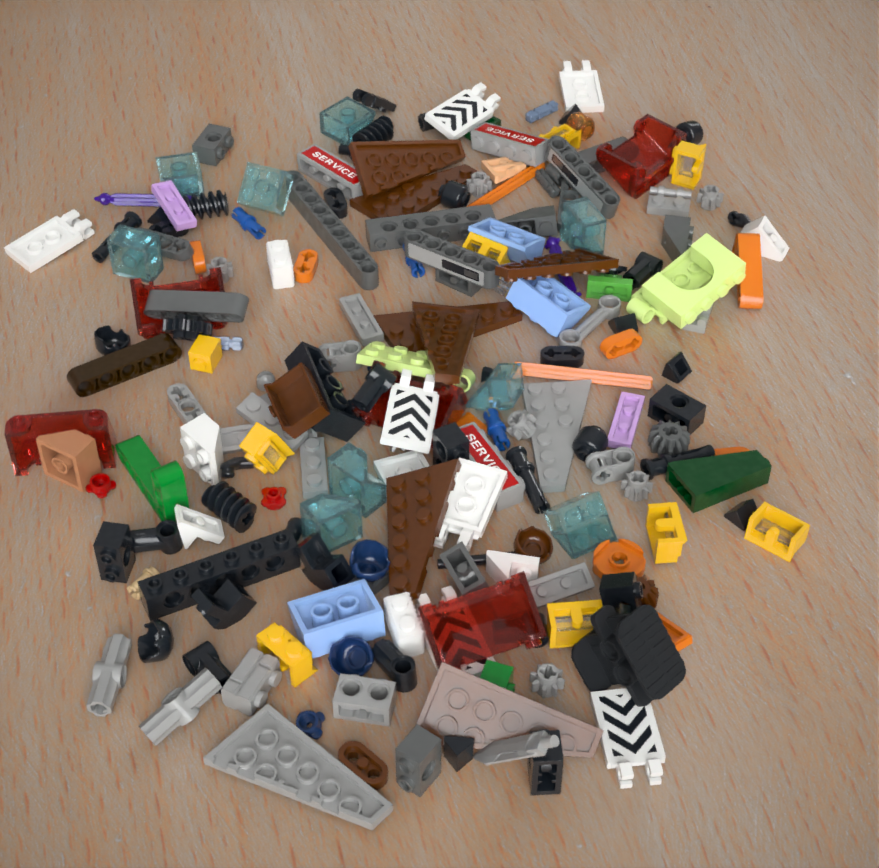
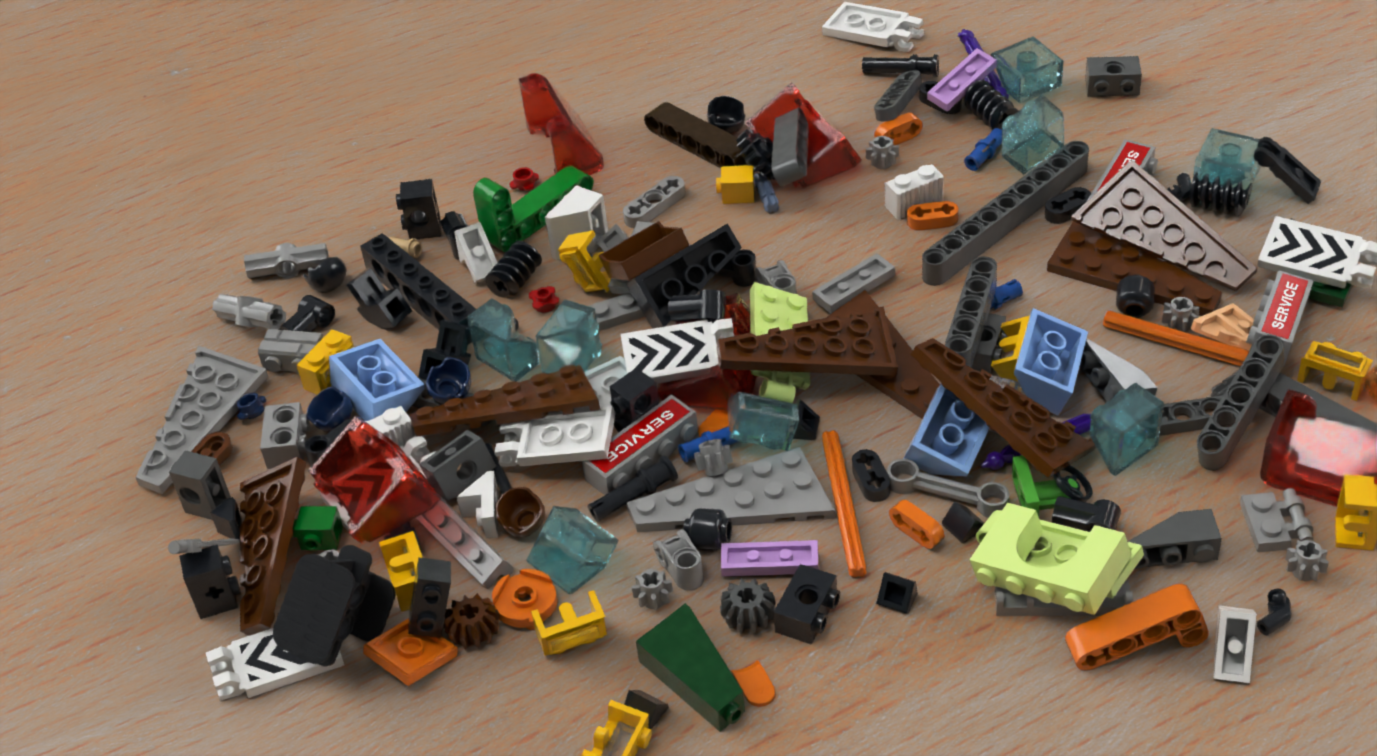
camera: 80 degrees right, 0 degrees up
(69, 457) = (533, 142): nougat slope -> none
(135, 253) = (863, 80): clear light blue slope -> none
(446, 224) = (1057, 290): dark grey brick -> none
(659, 465) = (708, 616): black pin -> none

